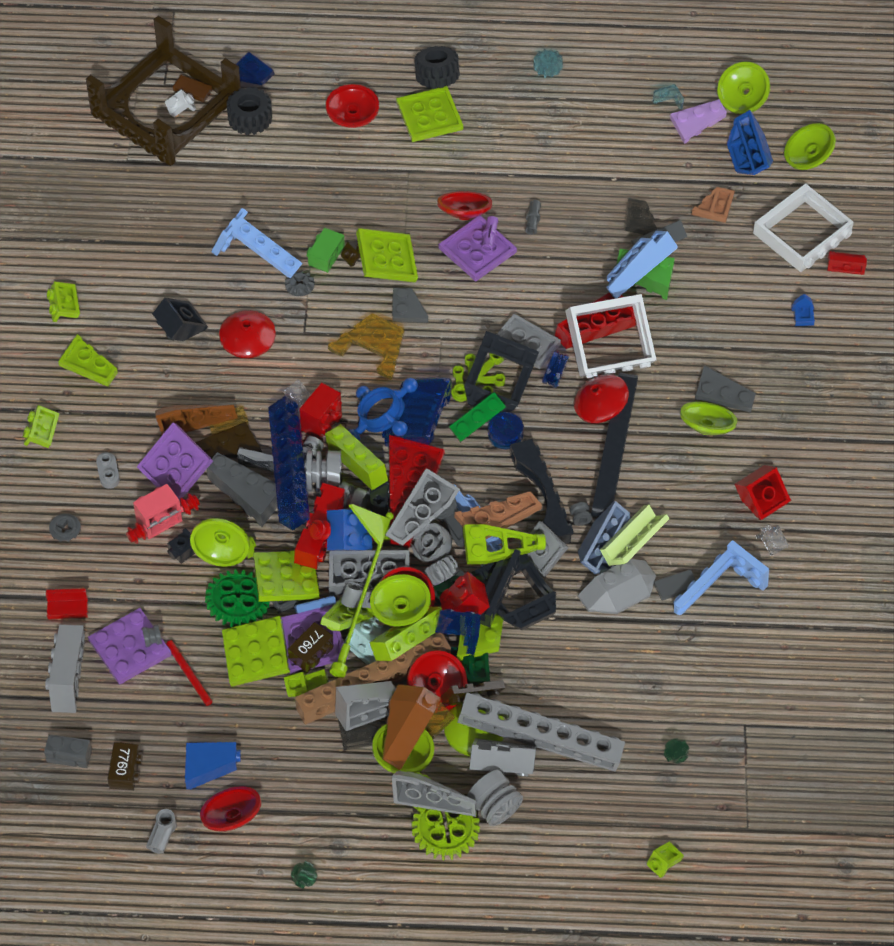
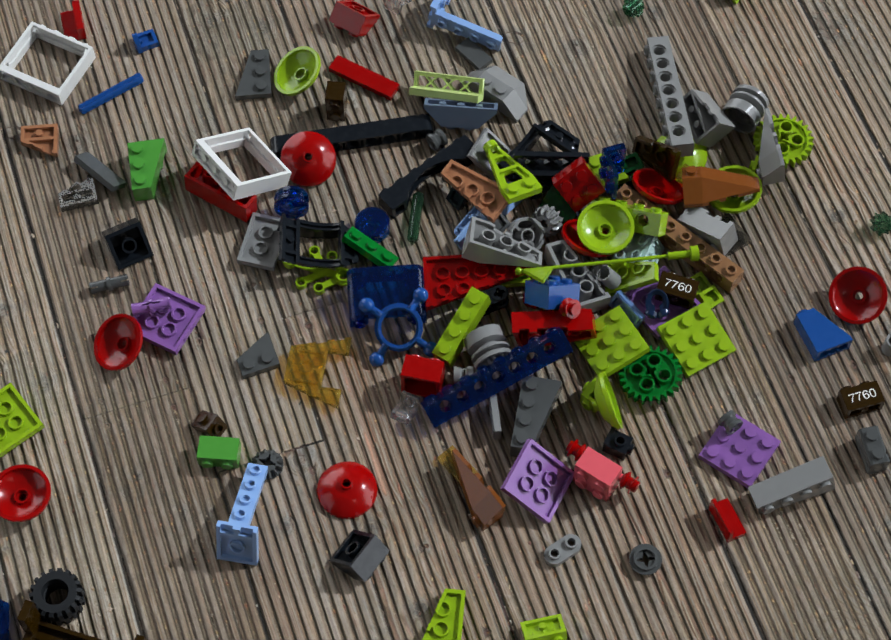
camera: 110 degrees left, 5 degrees up
(189, 673) = (741, 388): red bar -> none
(229, 441) = (484, 453): dark brown wing -> none
(297, 617) = (650, 308): none -> dark blue piece
(354, 496) = (502, 316): light grey wheel -> none
(387, 255) = (209, 389): lime plate -> none
(500, 470) = (415, 217): none -> clear green axle
(570, 238) = (127, 243): none -> black slope
(639, 261) = (147, 164): light blue wedge -> none
(656, 437) = (336, 100): none -> dark brown brick
(685, 480) = (364, 77): none -> red tile
(749, 271) = (110, 93): none -> blue axle

